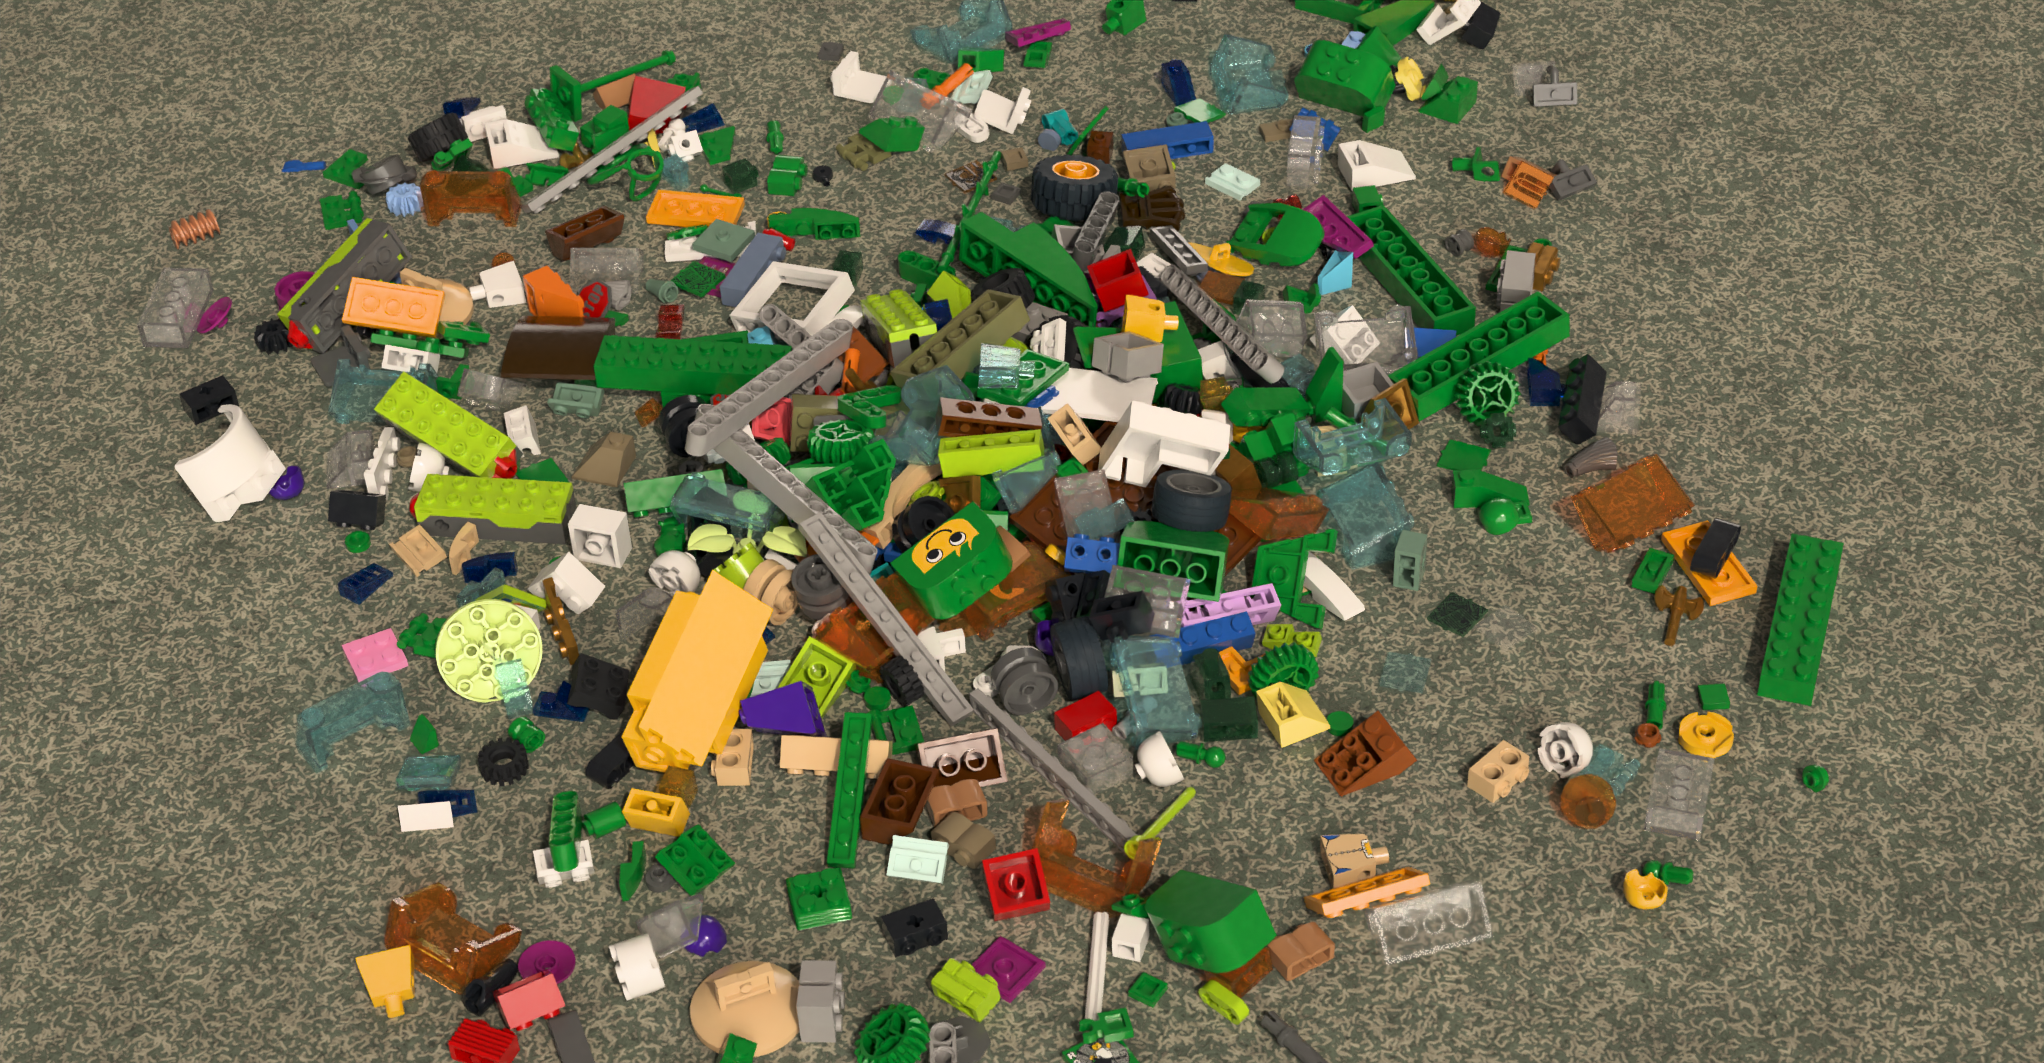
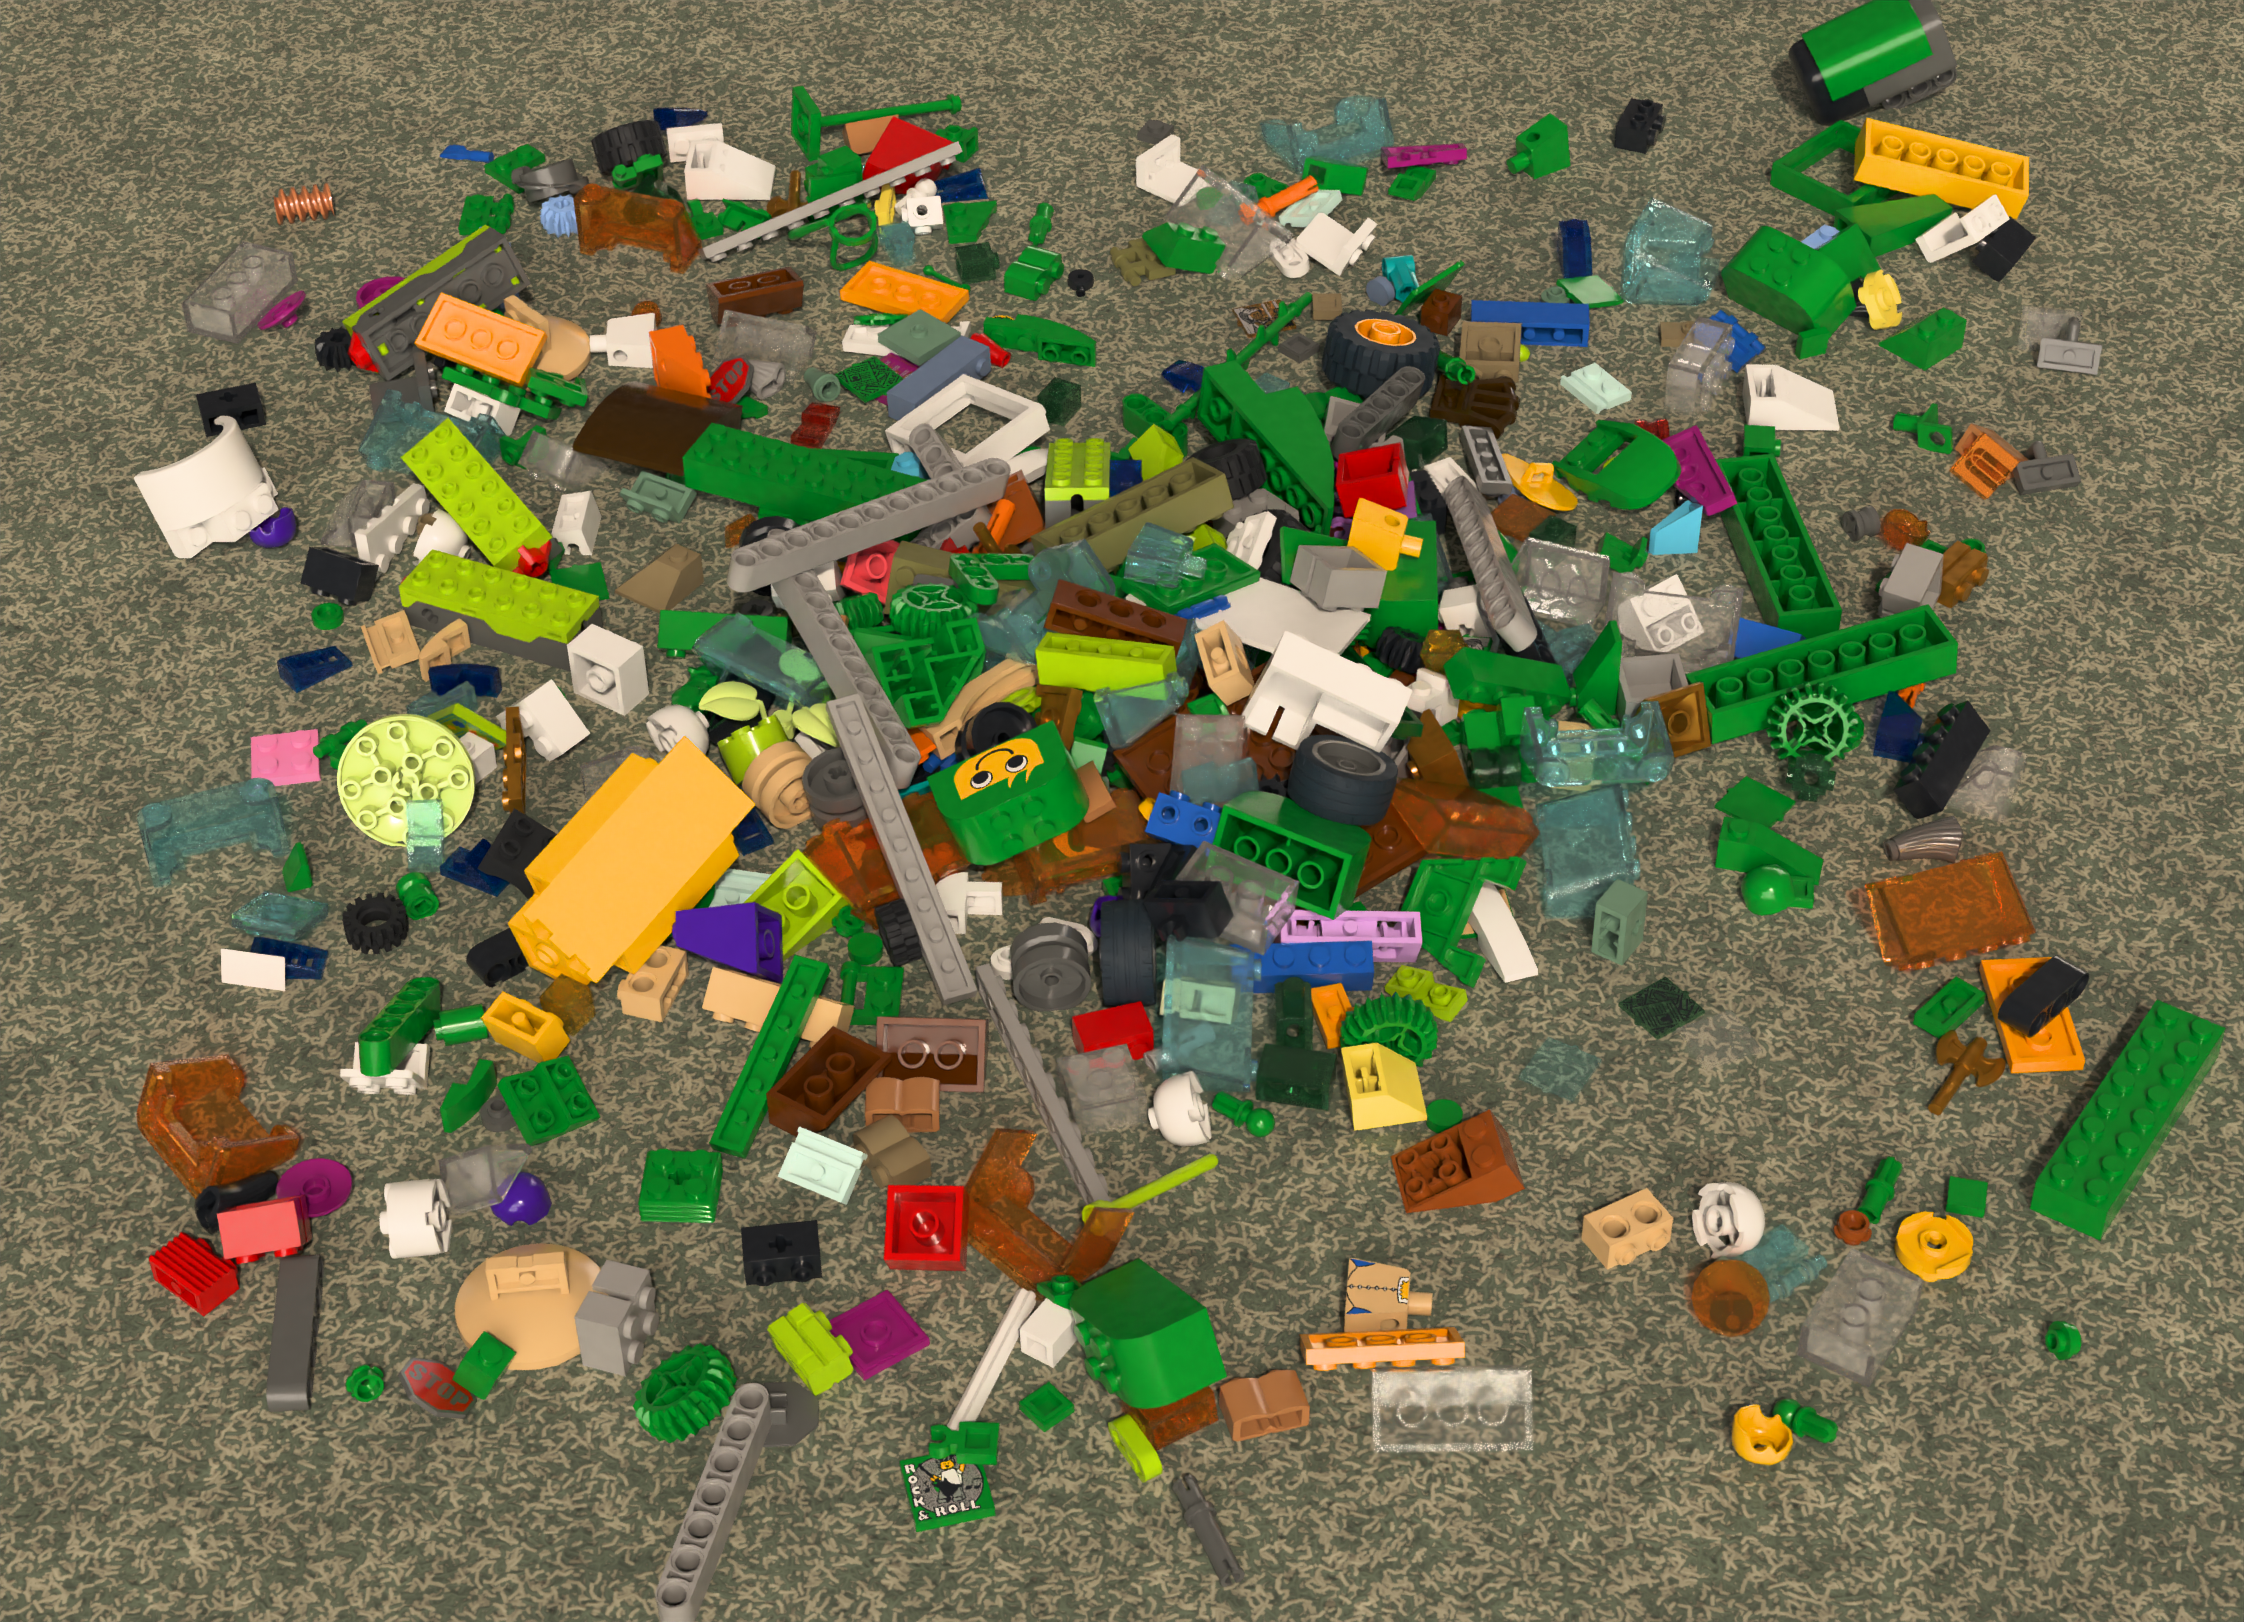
camera: 15 degrees right, 0 degrees up
(389, 978) = (118, 1159): yellow torso -> none
(551, 119) = (776, 151): green brick -> none
(1436, 83) = (1913, 311): green slope -> none

